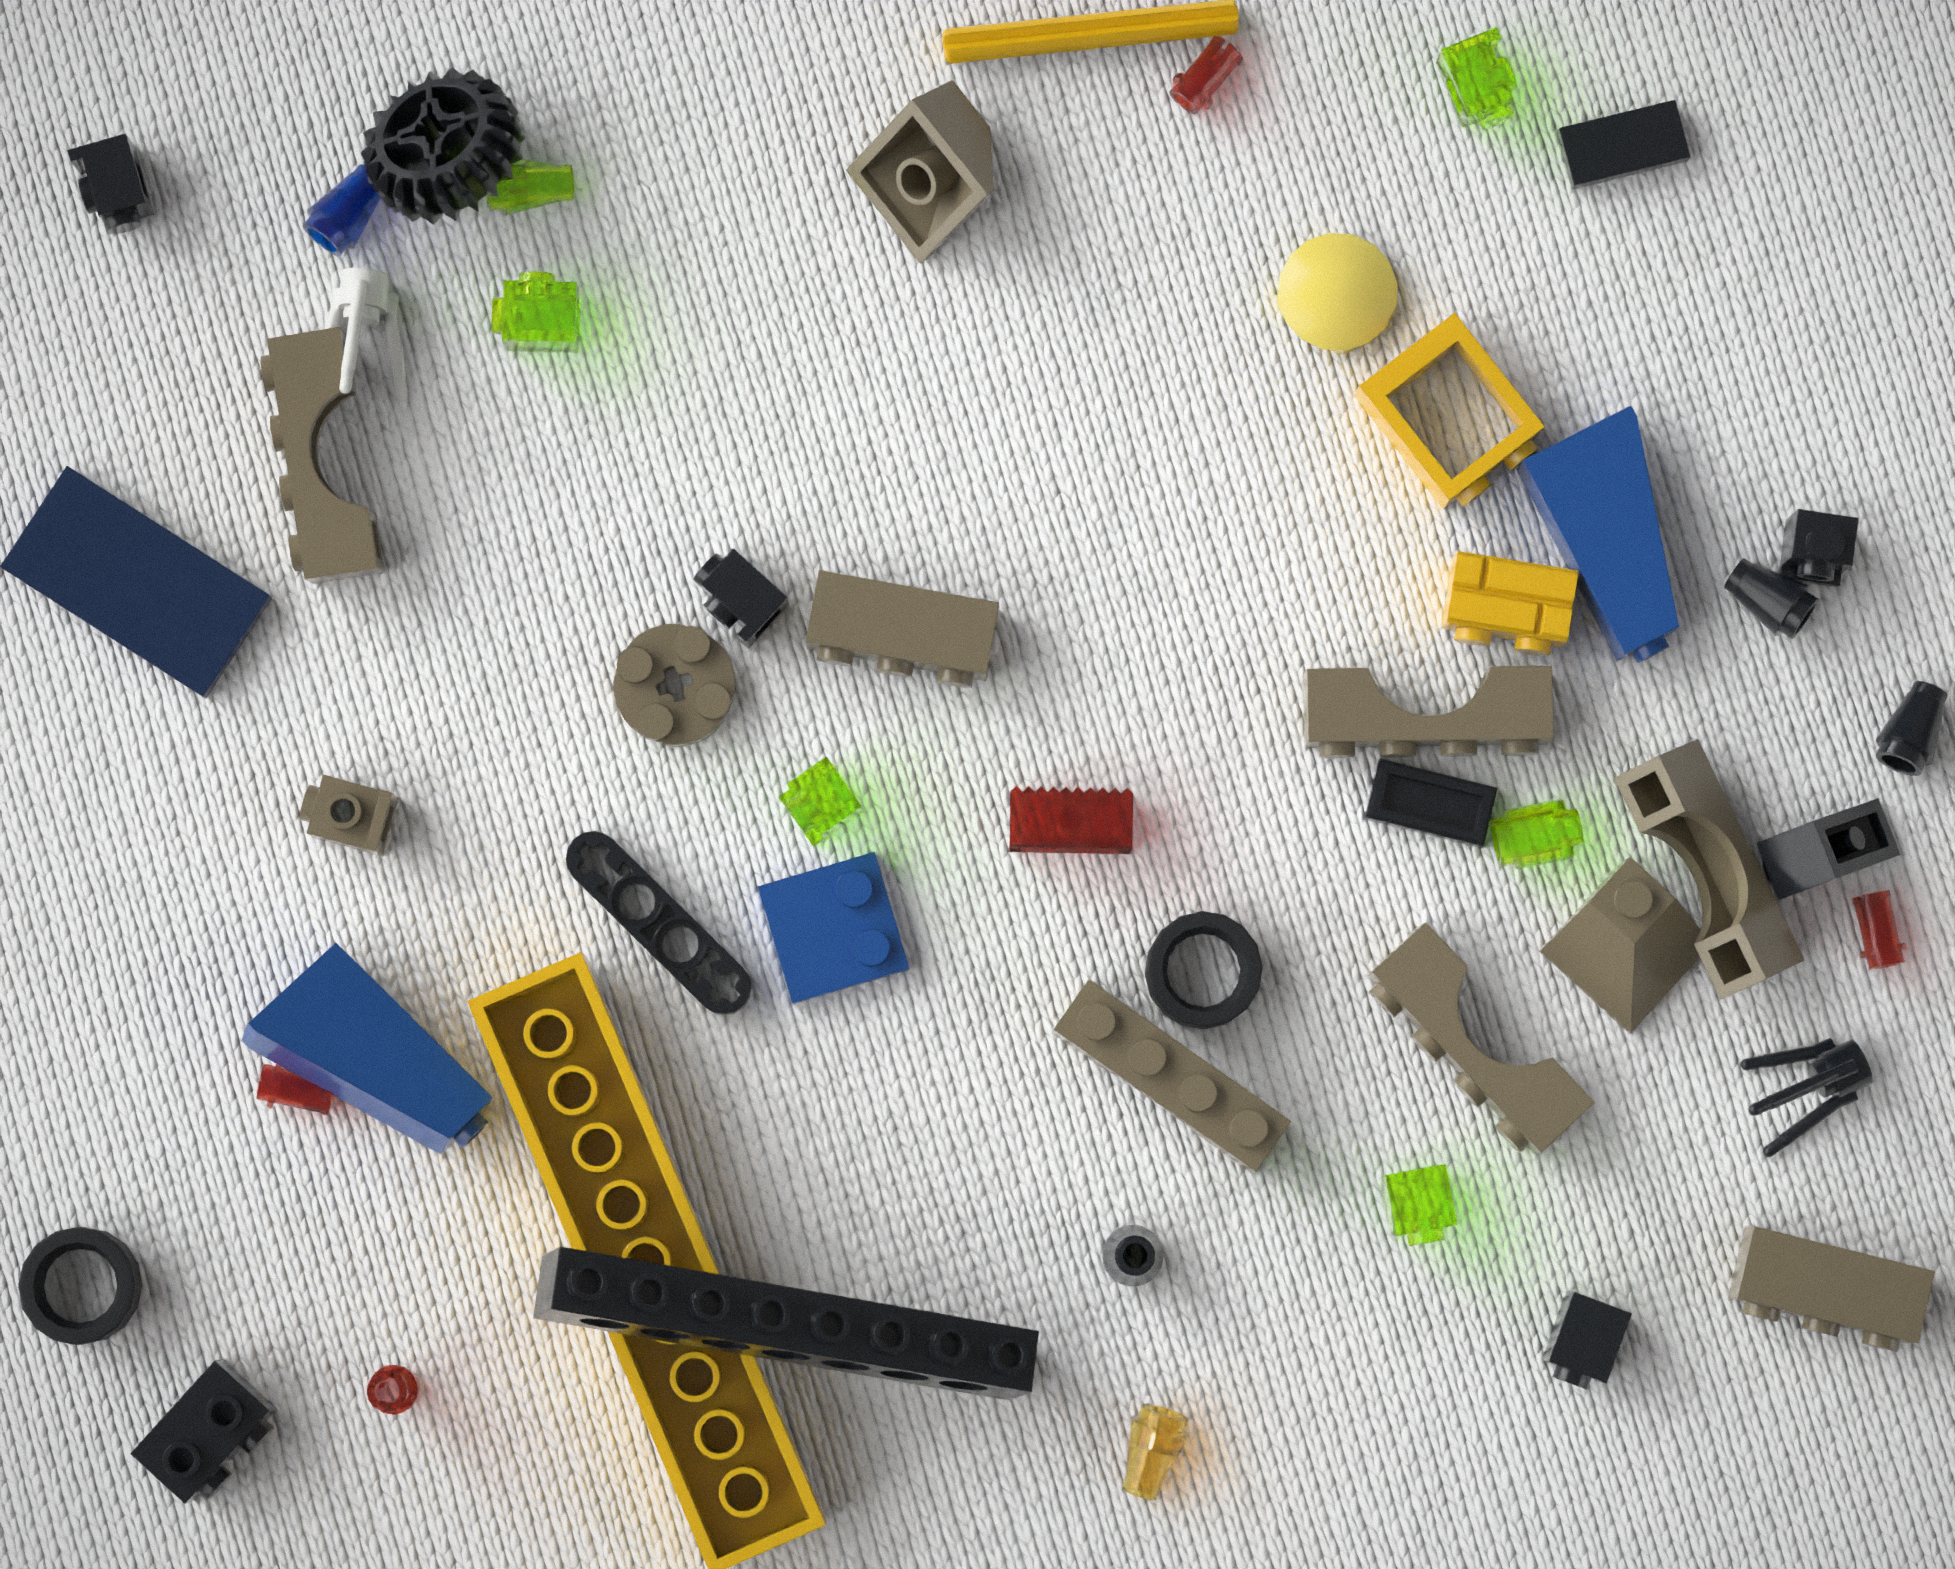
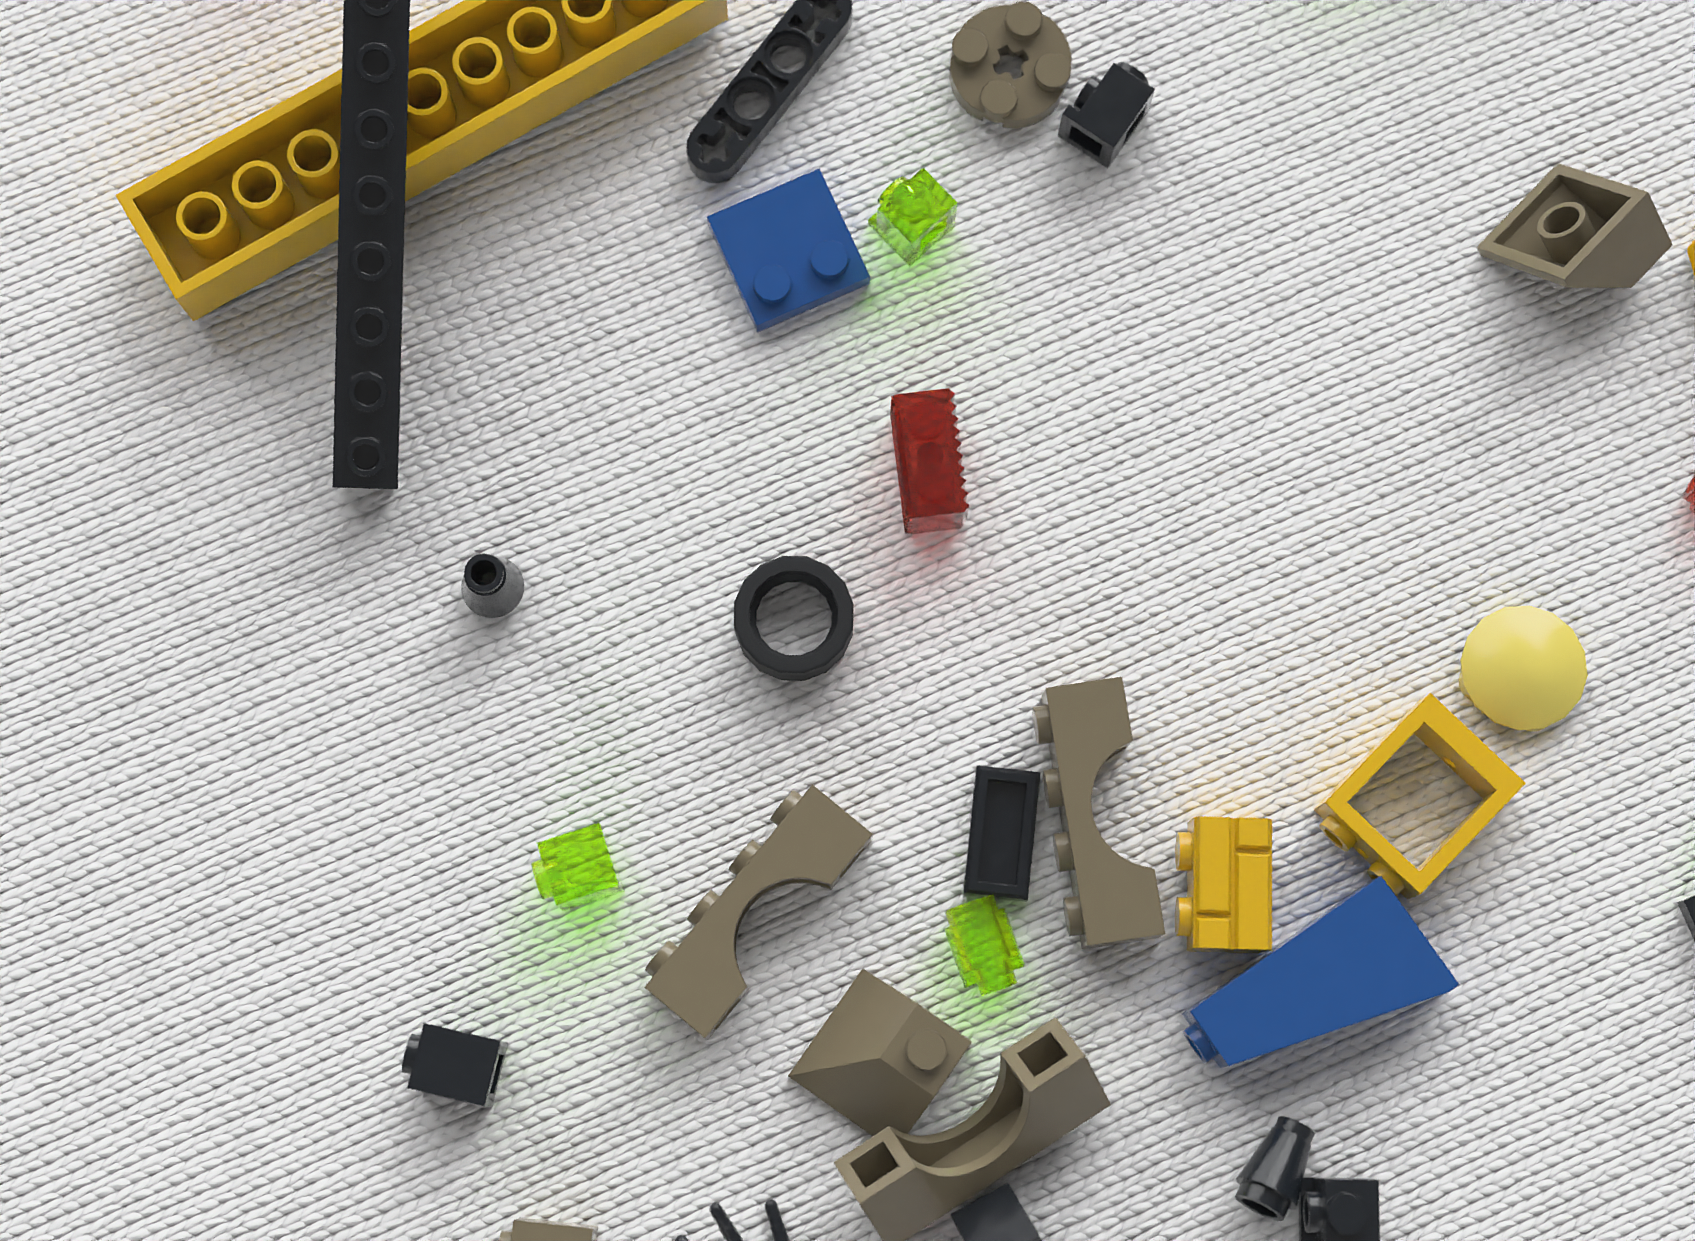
camera: 85 degrees right, 5 degrees down
(901, 628) = (1100, 271): dark tan brick -> none
(1153, 1448) = (298, 630): clear yellow cone -> none
(1171, 1076) = (675, 595): dark tan arch -> none

